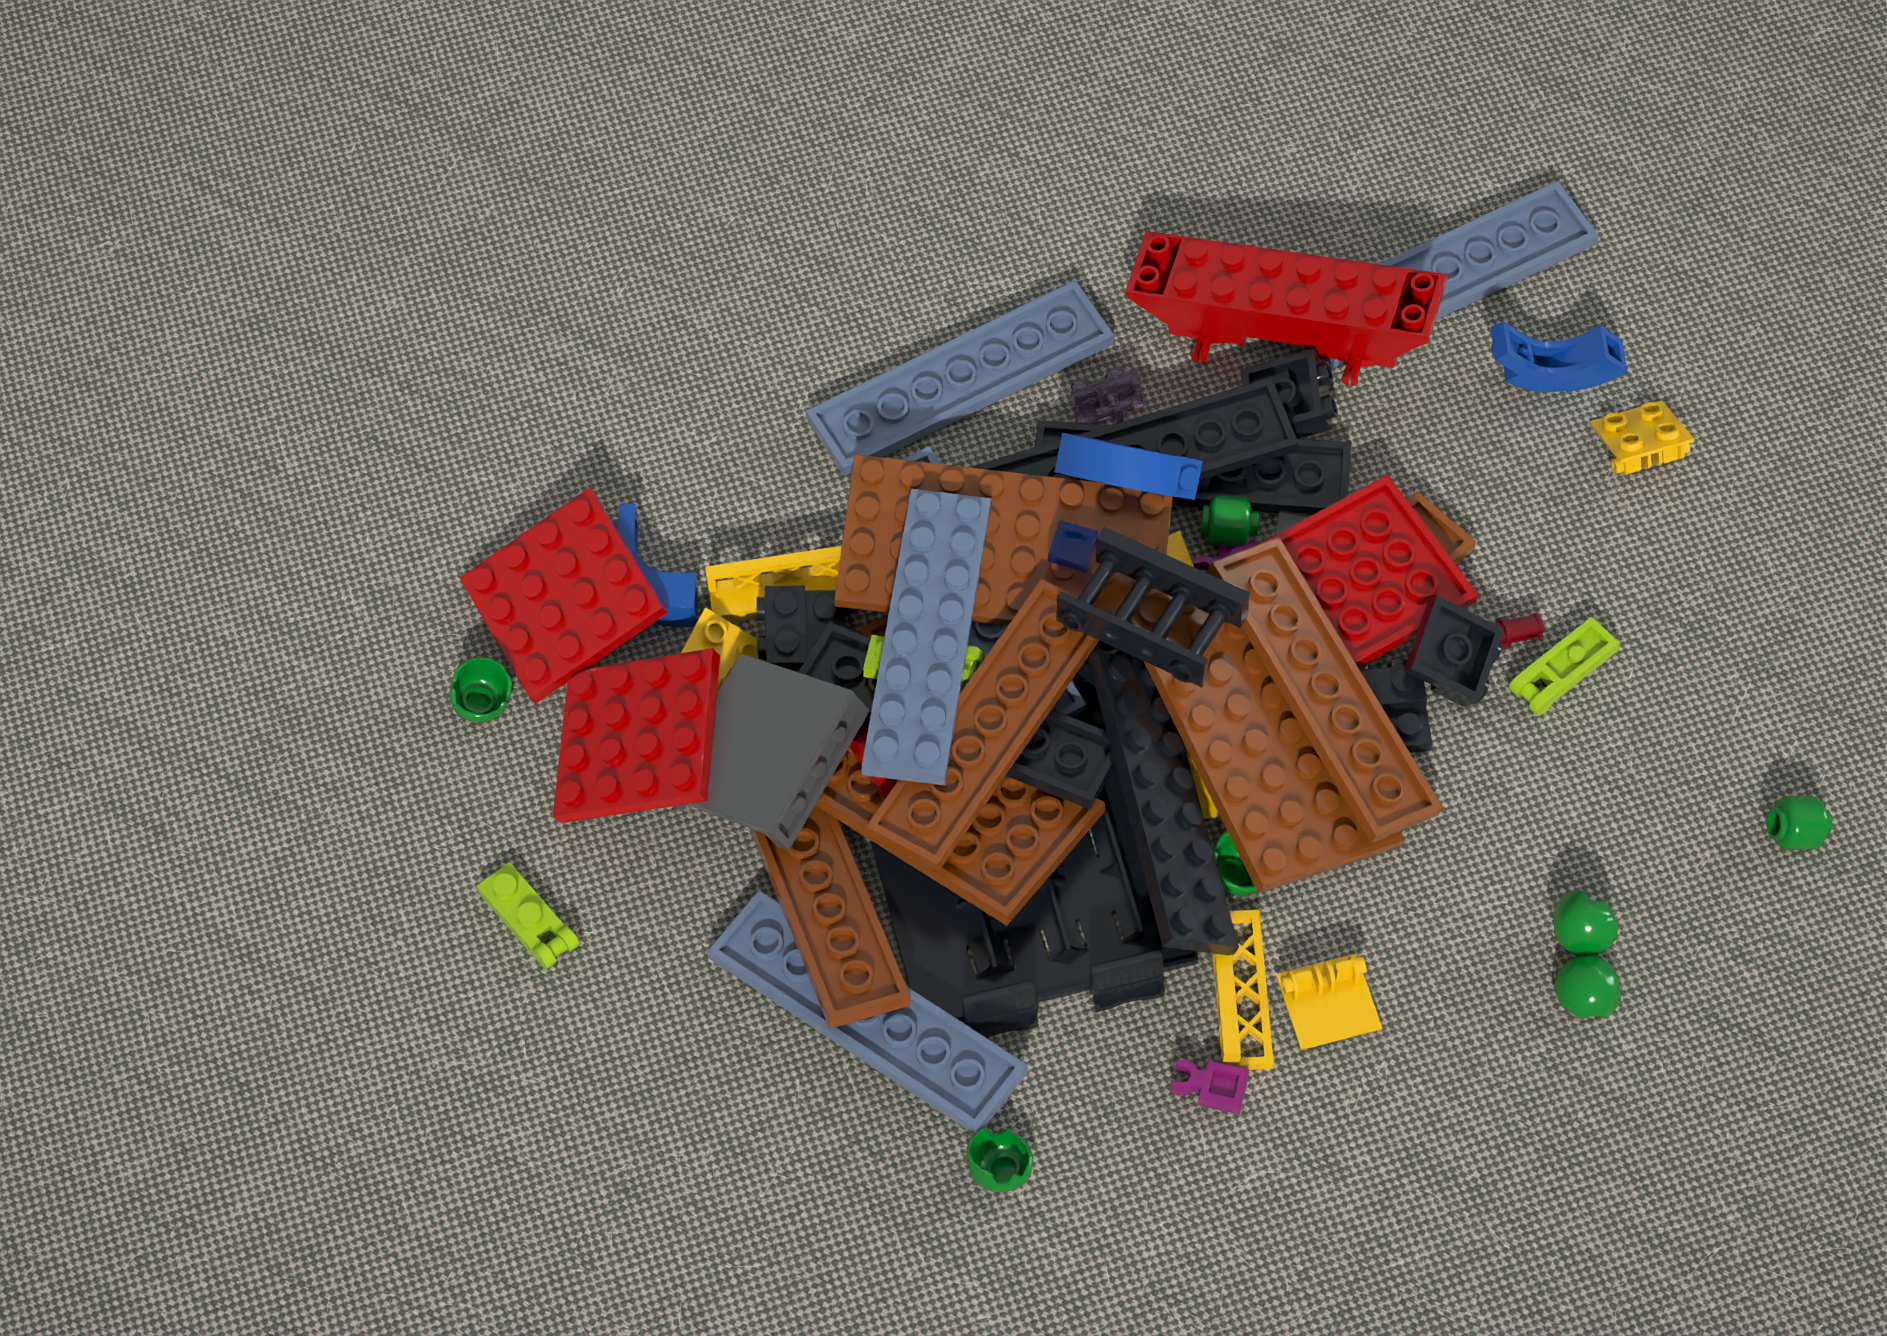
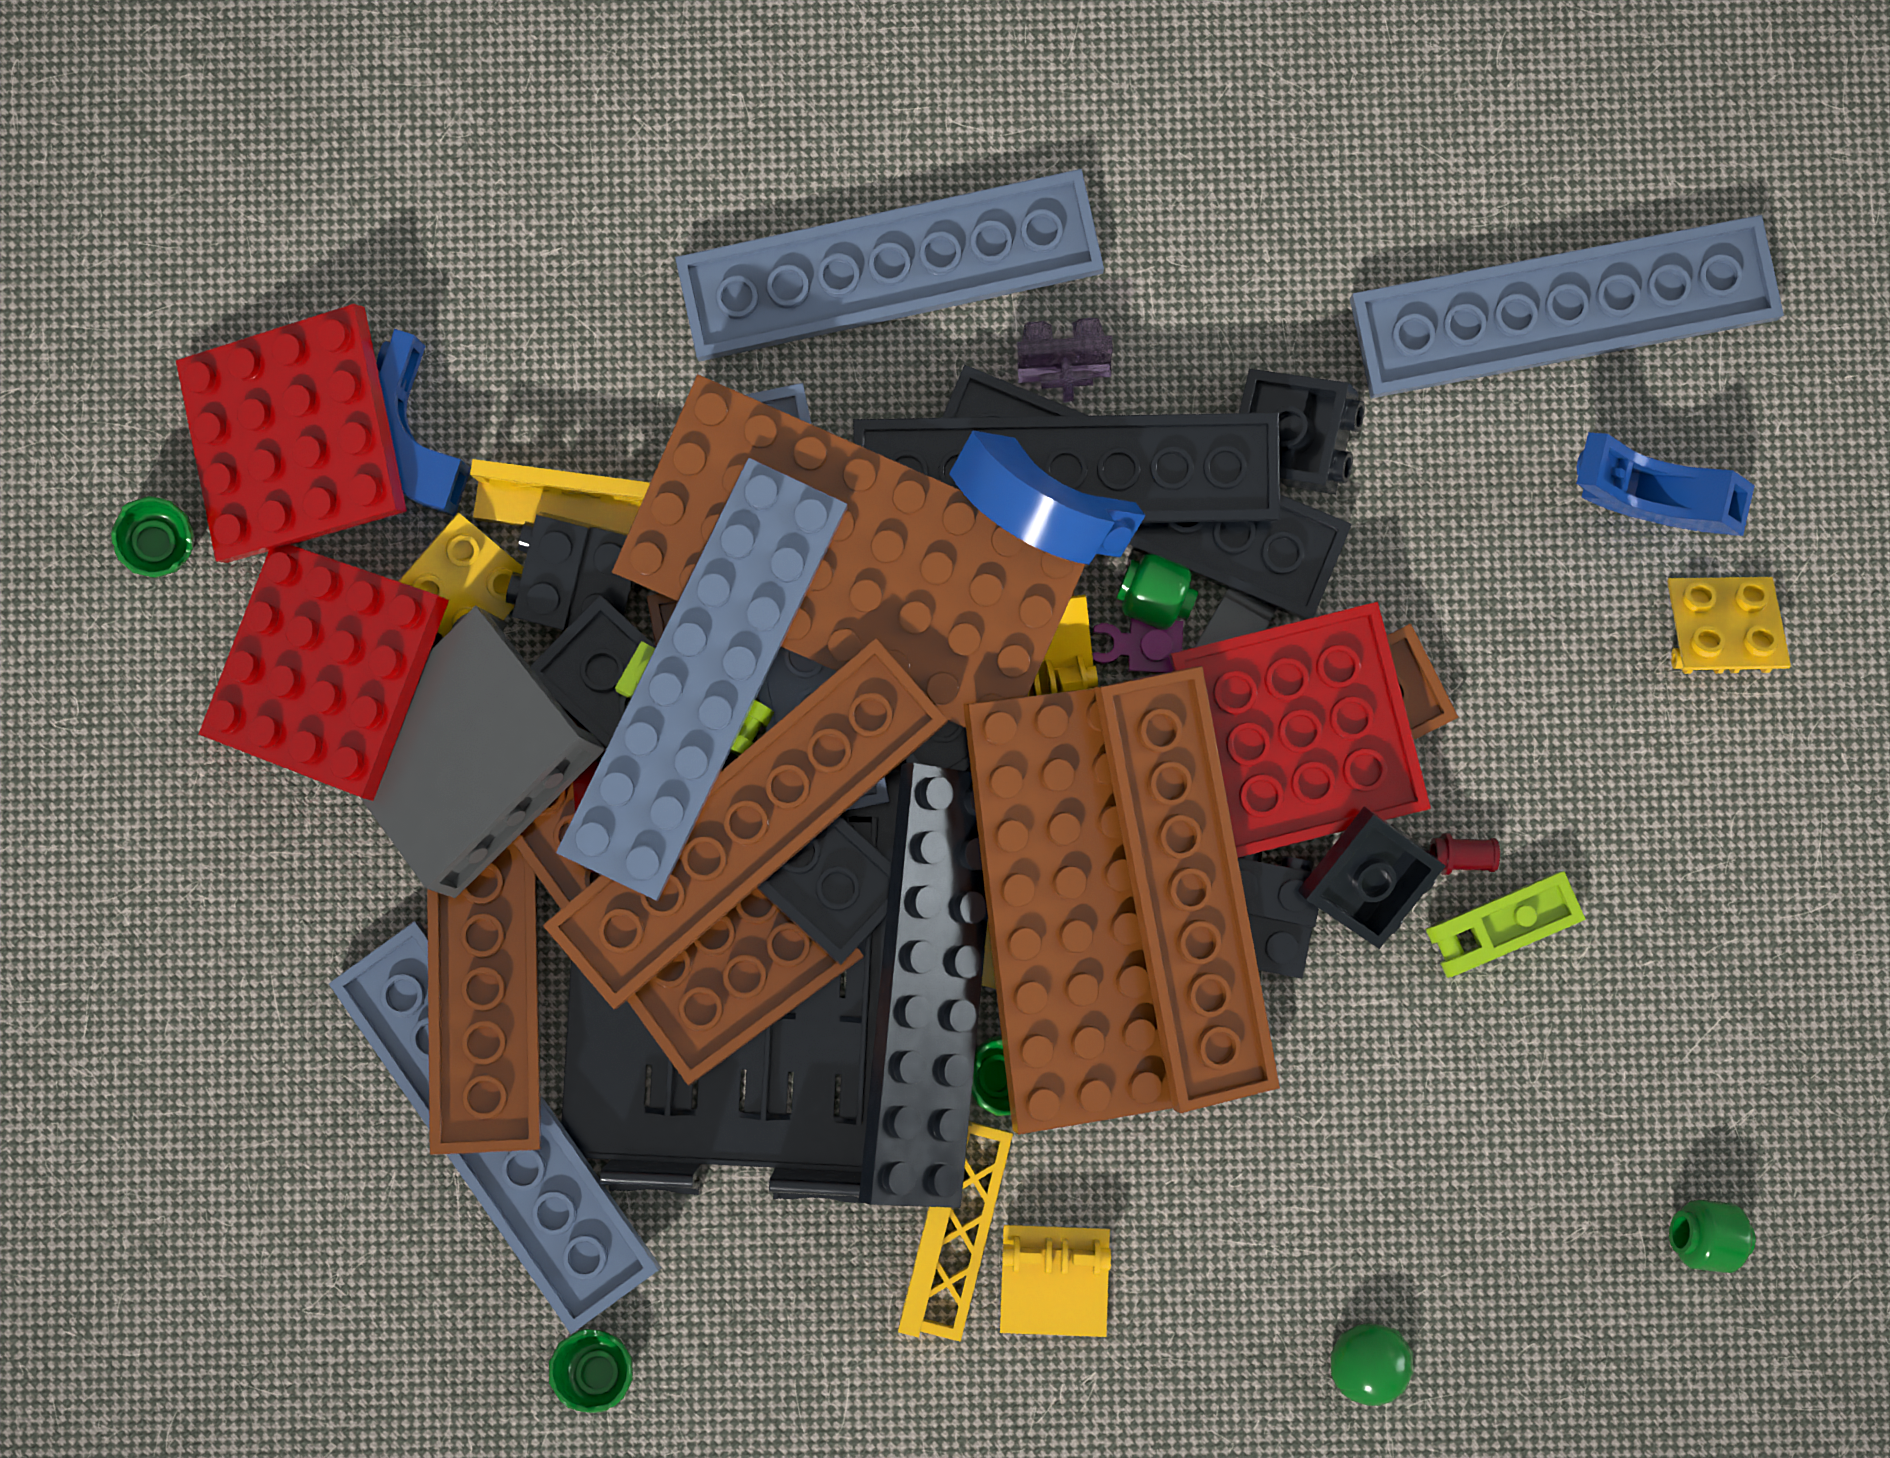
camera: 20 degrees right, 25 degrees up
(527, 915) = (133, 857): lime plate -> none
(1072, 546) = (932, 601): clear blue plate -> none
(1168, 575) = (1051, 725): black fence -> none
(1218, 1086) = (883, 1352): magenta plate -> none
(1240, 291) = (1361, 309): red piece -> none
(1584, 924) = (1390, 1296): green hair -> none

